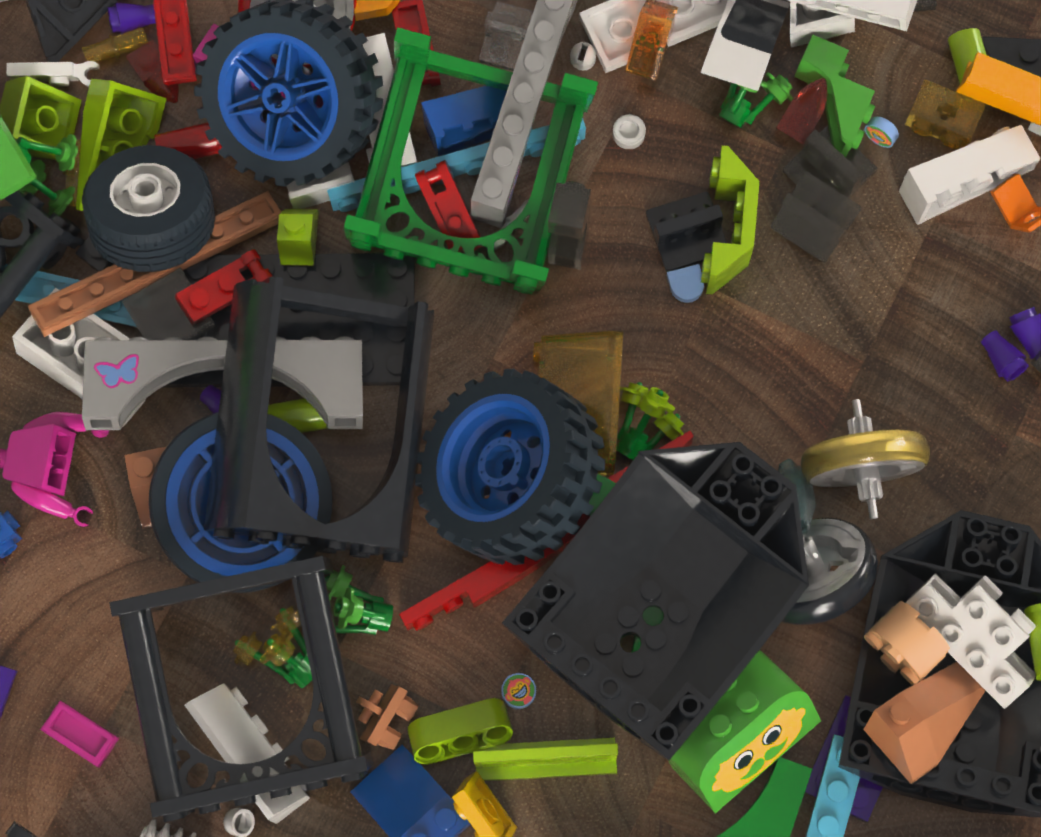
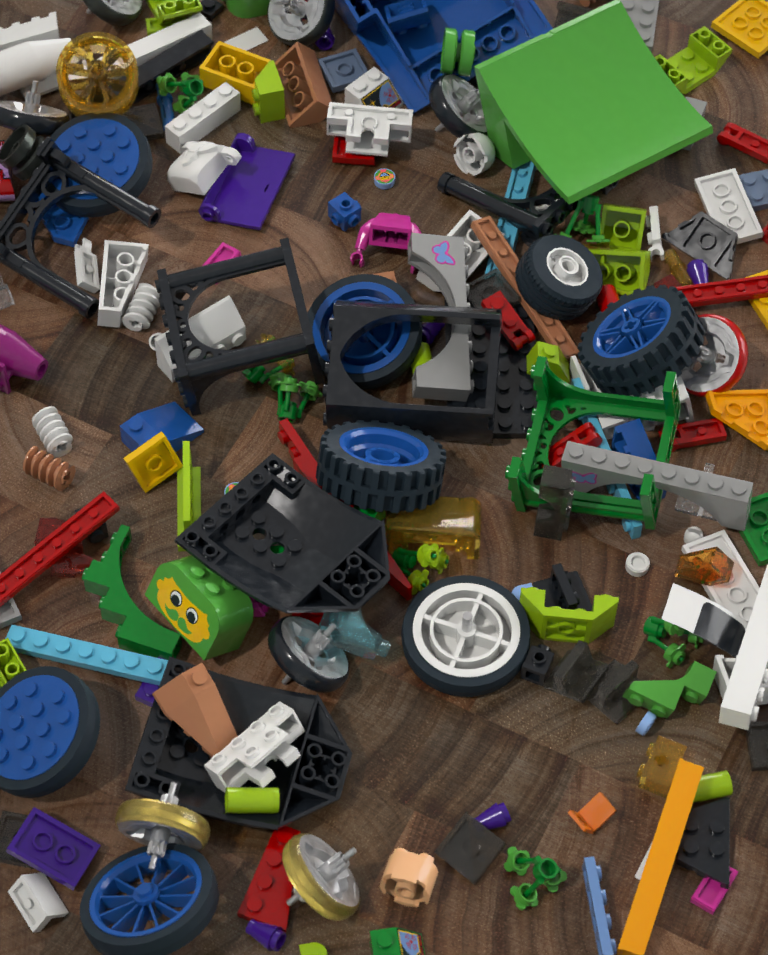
camera: 85 degrees right, 20 degrees down
(394, 702) = (230, 421): nougat hips -> none
(460, 731) = (209, 455): lime beam -> none
(760, 359) = (465, 636): none -> white wheel
(796, 277) = (537, 664): none -> black brick
(804, 111) = (656, 668): clear red plate -> none
(865, 458) = (388, 685): wheel -> none
(907, 643) = (251, 698): light nougat brick -> none
(967, 172) = (614, 775): white wedge -> none
(1005, 357) = (472, 799): dark purple cone -> none

